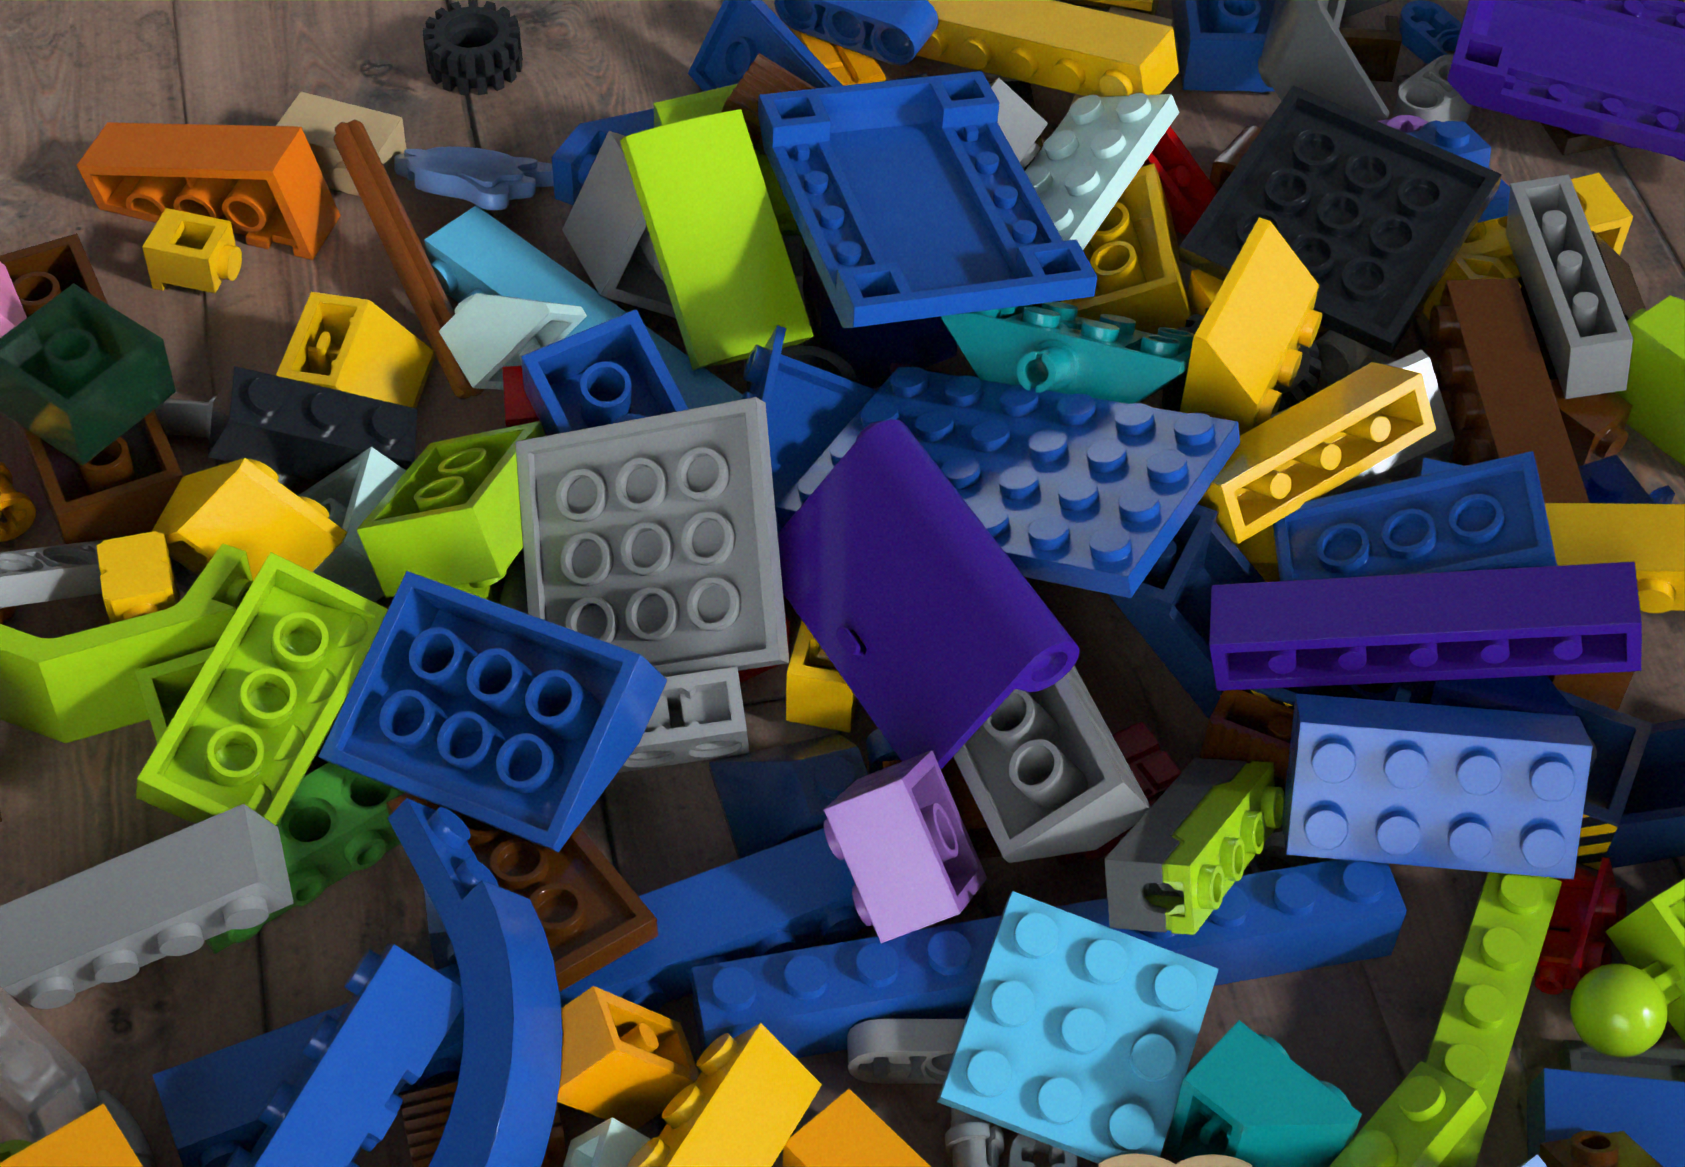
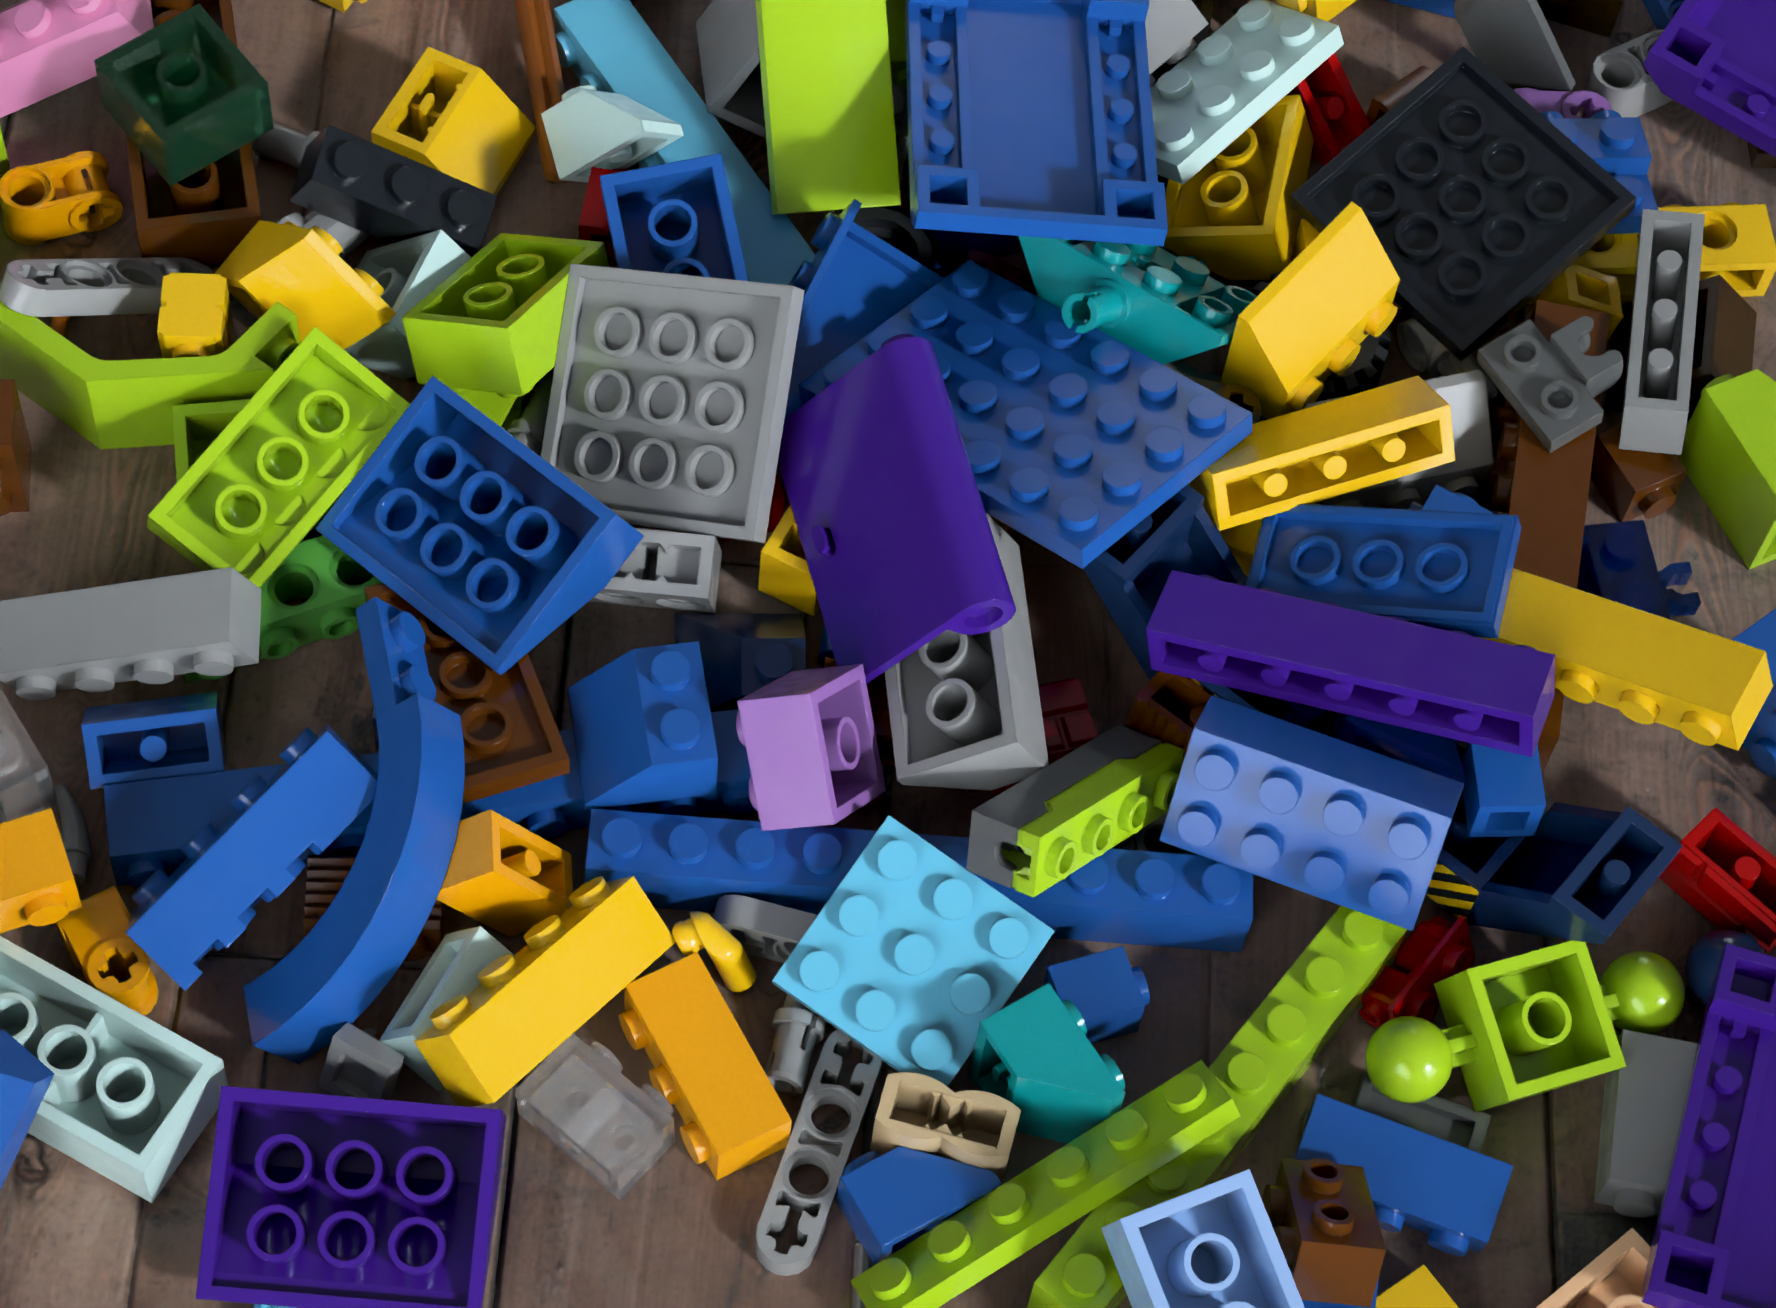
camera: 10 degrees right, 10 degrees up
(196, 1014) = (154, 739): none -> blue brick
(726, 870) = (645, 728): none -> blue slope
(871, 1078) = (723, 948): none -> yellow arm
(1283, 1013) = (1104, 991): none -> blue brick
(1493, 342) = (1552, 381): none -> dark grey plate
(1616, 717) = (1502, 792): none -> blue brick

